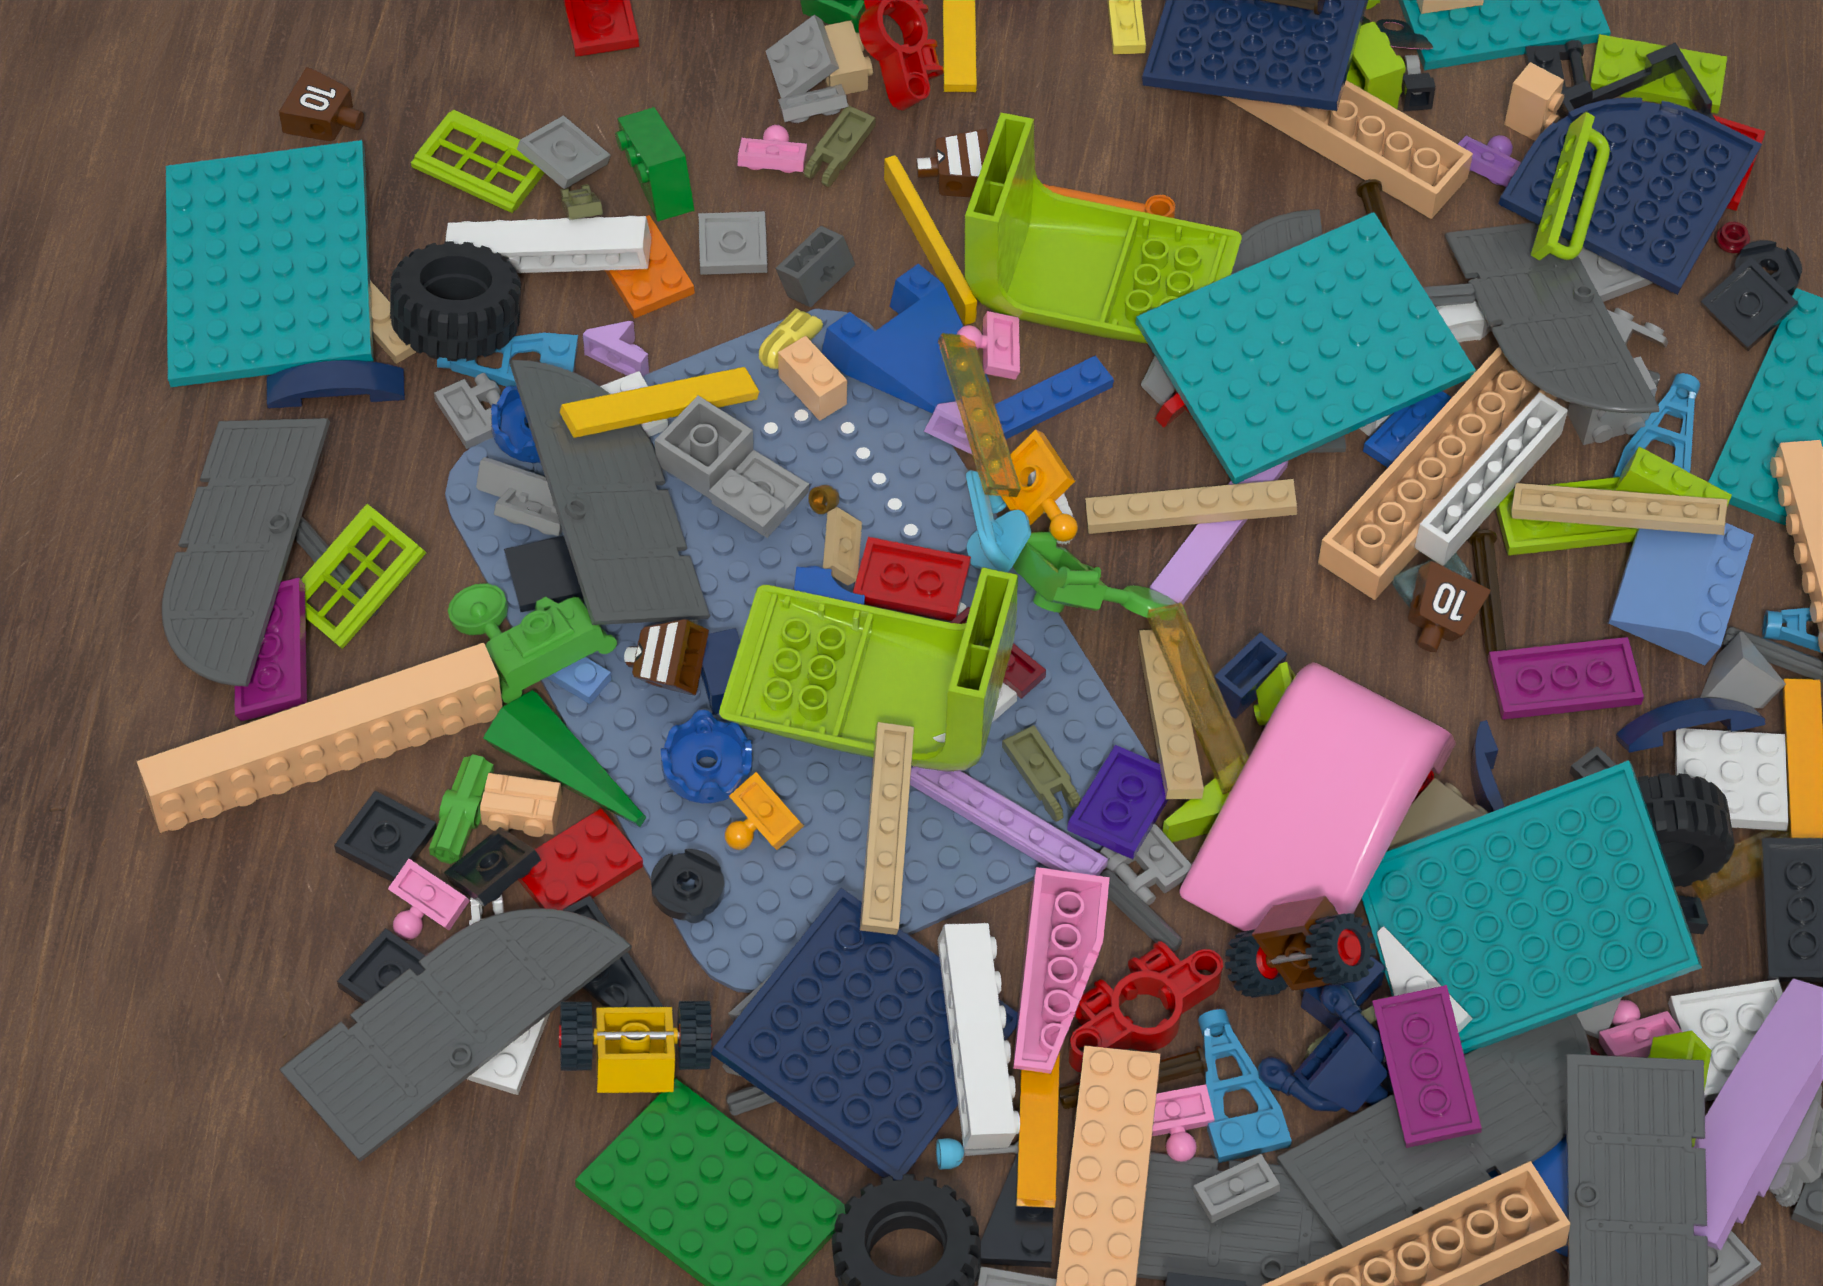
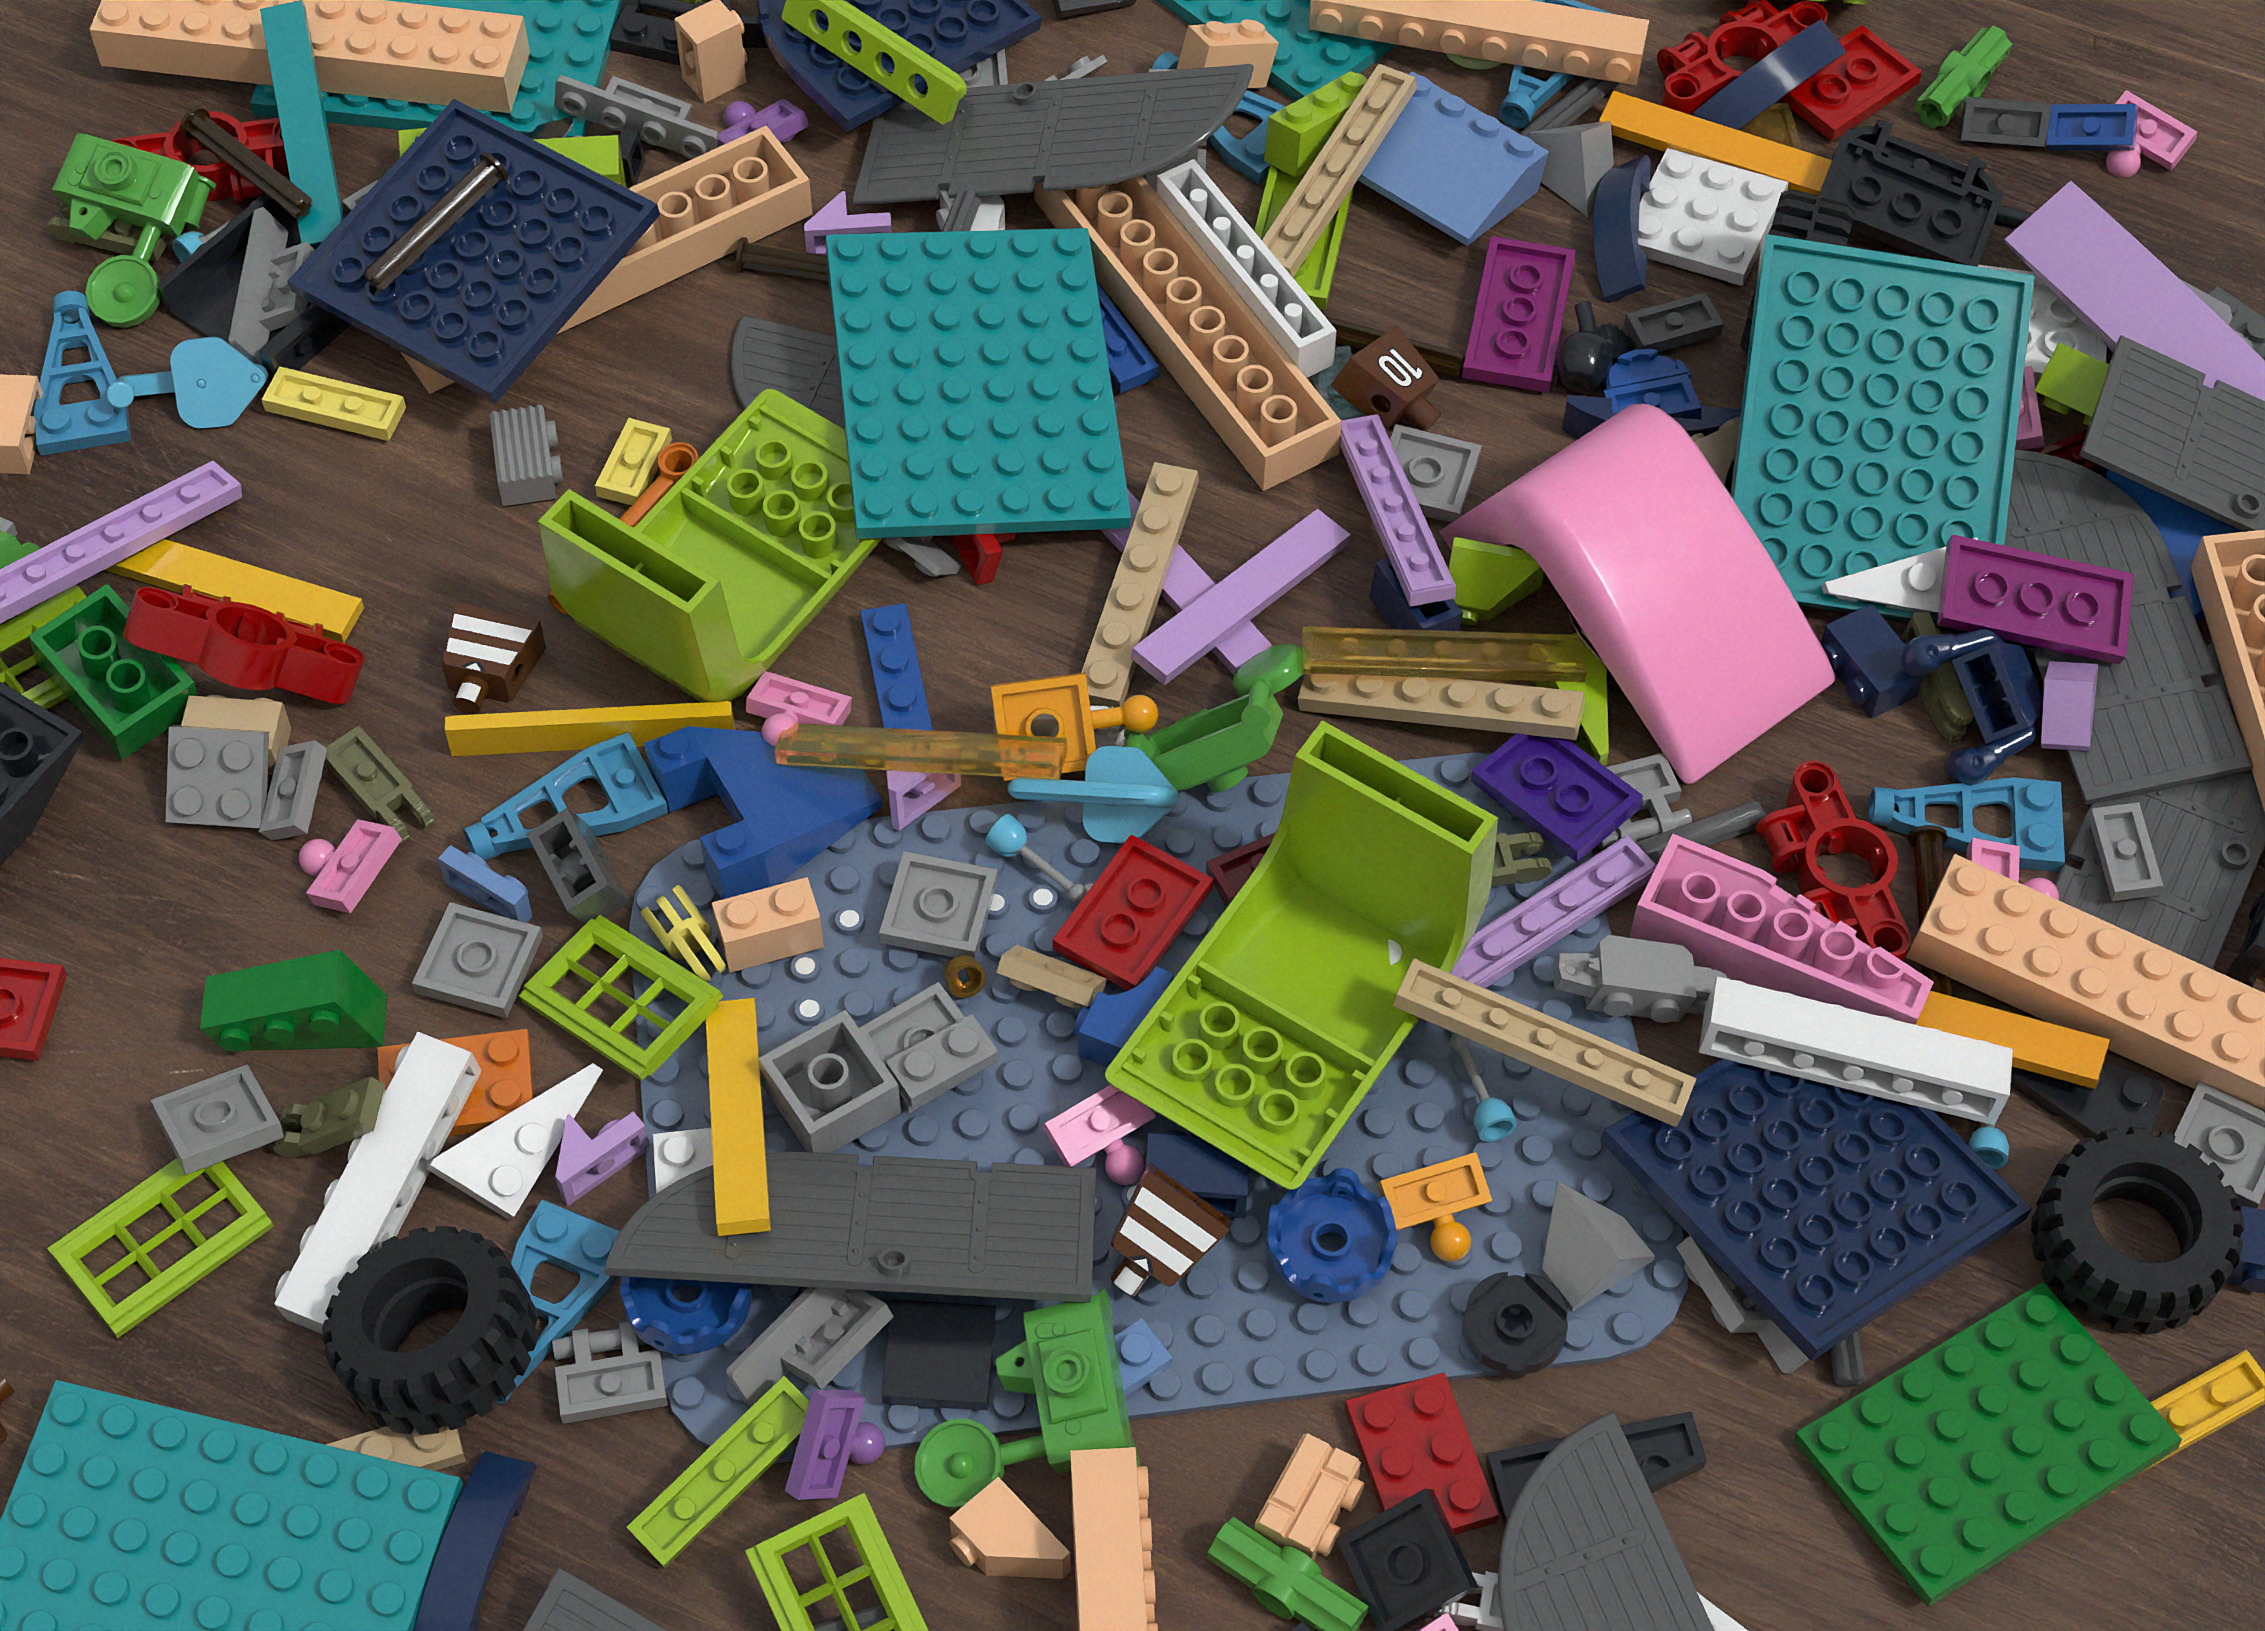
camera: 70 degrees left, 0 degrees up
(426, 486) = (722, 1473): none -> lime plate
(440, 635) = (1006, 1537): none -> light nougat slope
(460, 528) = (828, 1440): none -> medium lavender plate
(540, 740) = (1221, 1441): green wedge -> none
(595, 304) = (509, 1155): none -> white wing
(635, 1044) = (1758, 1451): brick -> none
(712, 302) = (595, 1033): none -> lime piece
(731, 600) = (1100, 1125): none -> bright pink plate
(763, 916) = (1589, 1248): none -> light grey slope
(783, 236) = (476, 881): none -> medium blue plate
(840, 831) = (1492, 1116): none -> medium azure hinge
(870, 468) = (938, 905): none -> light grey plate
(879, 280) = (621, 775): none -> dark azure plate
(941, 491) = (1010, 838): none -> hinge
(986, 890) = (1637, 979): none -> light grey hinge
(1131, 127) = (524, 455): none -> light grey brick
(1142, 186) = (632, 461): none -> light yellow plate
(1210, 570) = (1240, 597): none -> lavender tile
(1300, 946) = (1851, 655): brick -> none
(1317, 632) = (1395, 511): none -> lavender tile
(1353, 1117) = (2068, 705): none -> lavender slope
(1381, 656) = (1437, 470): none -> light grey plate
(1420, 239) = (834, 220): none -> lavender slope
(1462, 85) = (634, 107): none -> light grey bracket
(1515, 778) = (1670, 394): none -> blue plate
(1538, 731) = (1588, 355): none -> black piece
(1544, 769) = (1641, 367): none -> blue plate
(1706, 414) = (1228, 45): none -> light nougat brick

